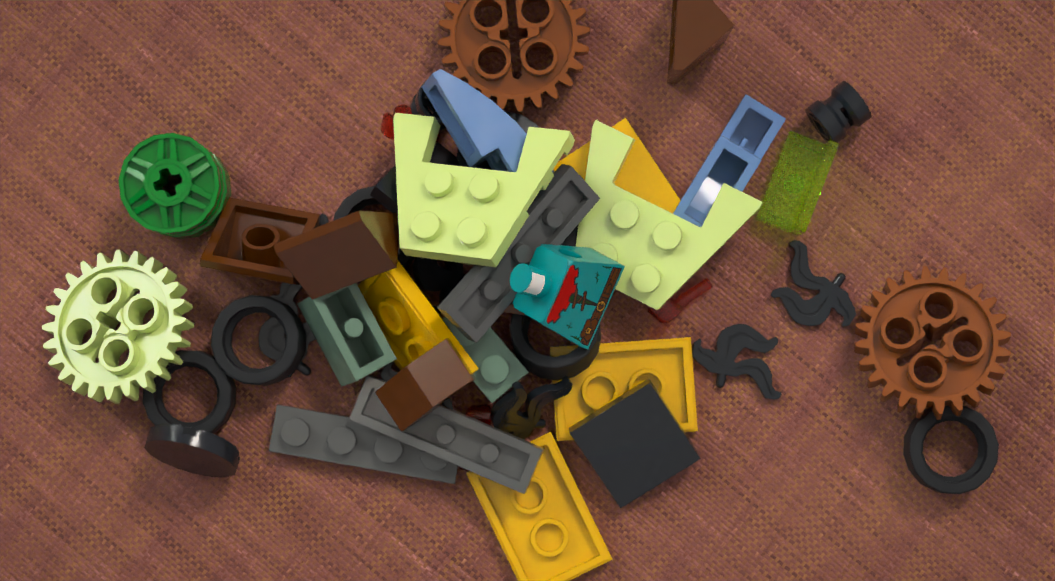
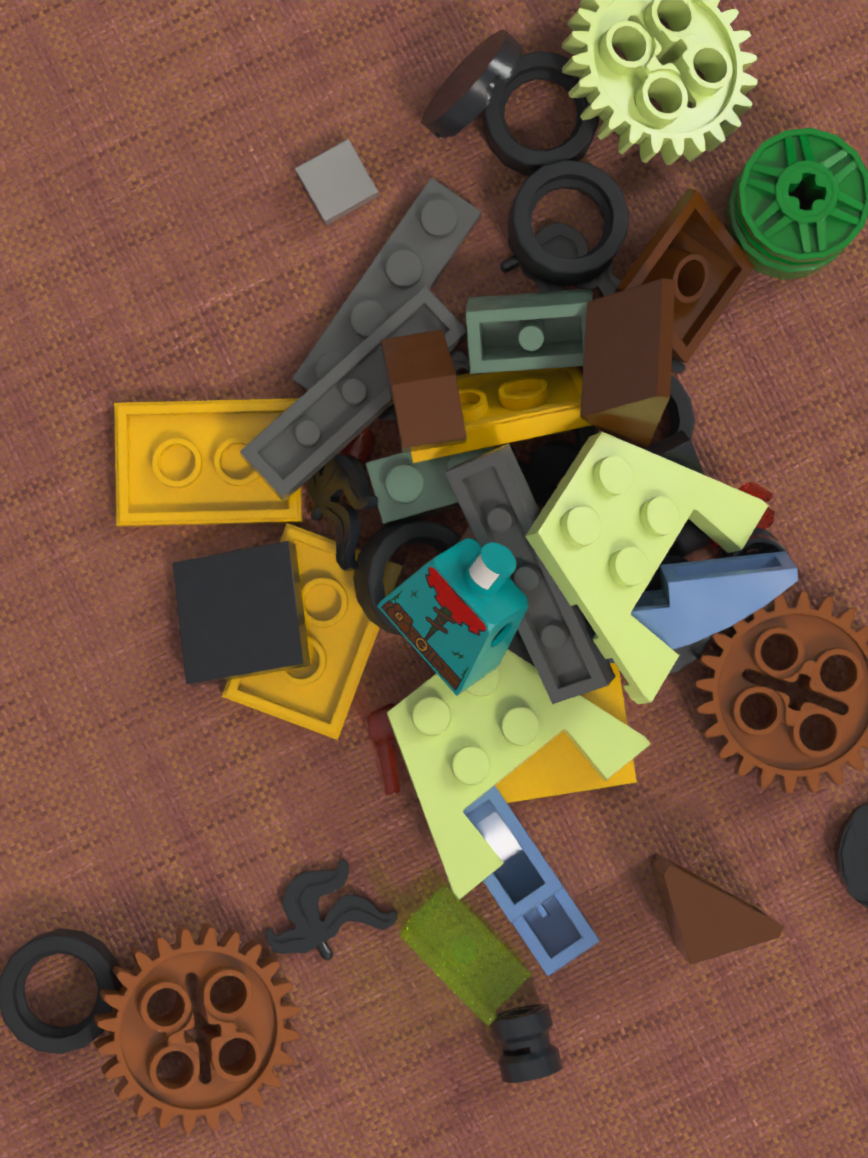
camera: 110 degrees right, 0 degrees up
(301, 516) = (337, 182): none -> light grey tile
(728, 345) = (307, 782): black piece -> none

